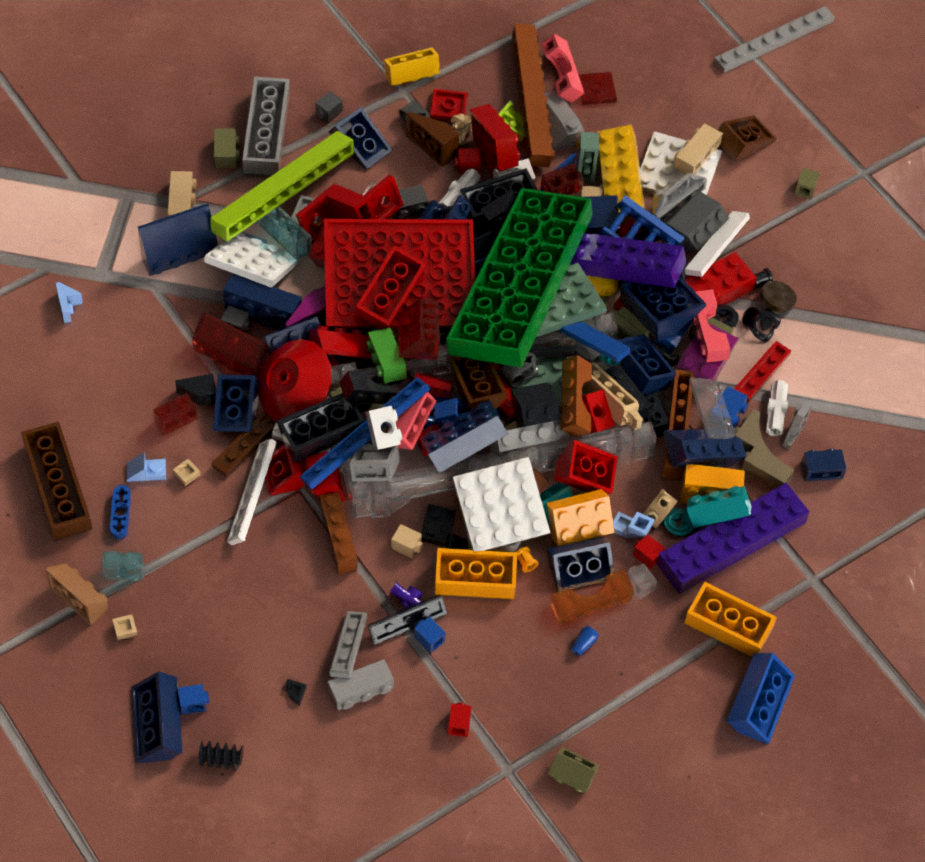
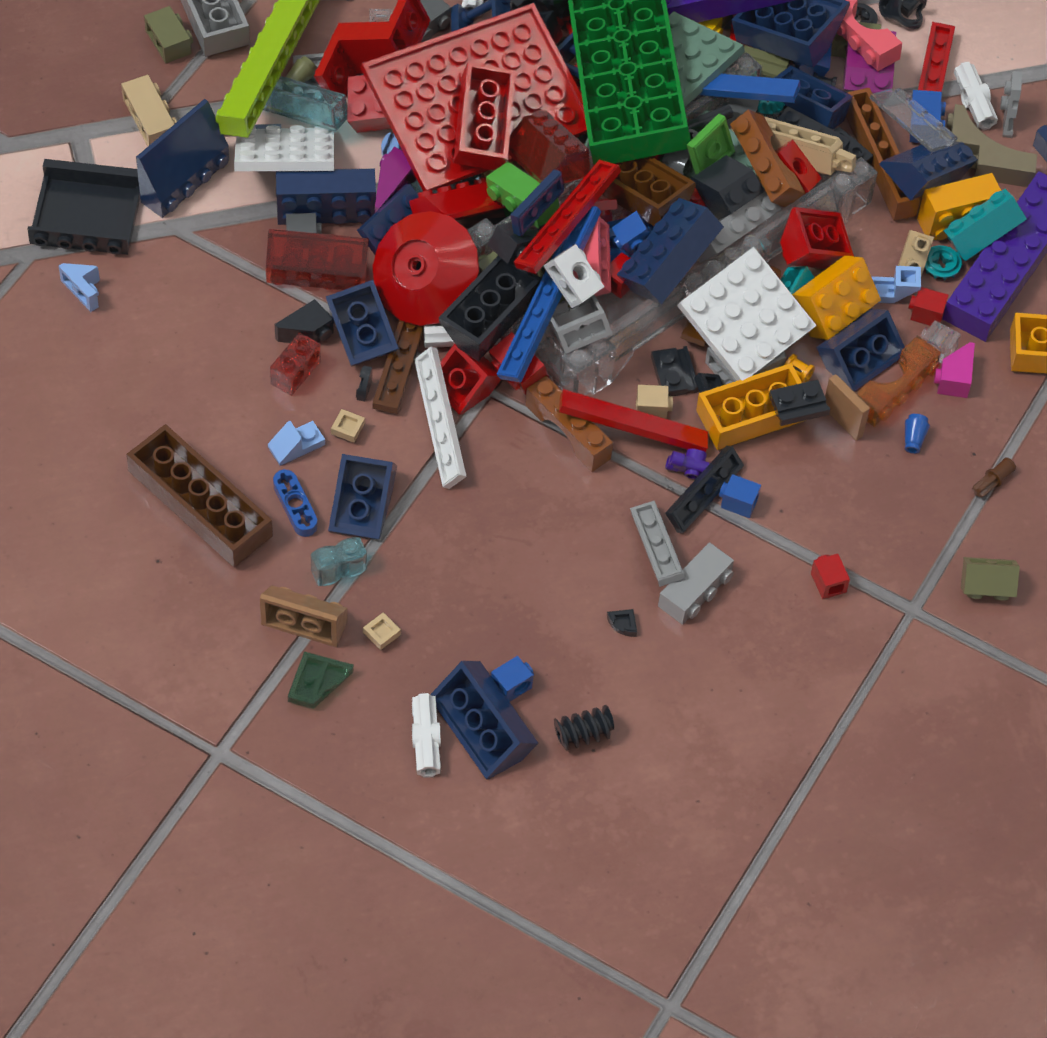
camera: 25 degrees left, 0 degrees up
(61, 642) = (317, 679): none -> clear green wing
(100, 250) = (86, 207): none -> black panel
(111, 713) = (426, 735): none -> white piece
(166, 526) = (362, 496): none -> dark blue slope
(216, 447) = (365, 384): none -> black tile
(295, 207) = (302, 70): none -> olive cone
(381, 549) = (632, 421): none -> red tile
(383, 365) = (537, 202): none -> dark blue tile
(402, 383) = (567, 216): none -> red tile
(504, 584) = (799, 402): none -> black plate
(538, 370) = (711, 144): none -> bright green tile
(540, 601) = (846, 407): none -> medium nougat tile
(623, 697) = (994, 477): none -> reddish brown axle
(640, 607) = (955, 373): none -> dark pink slope

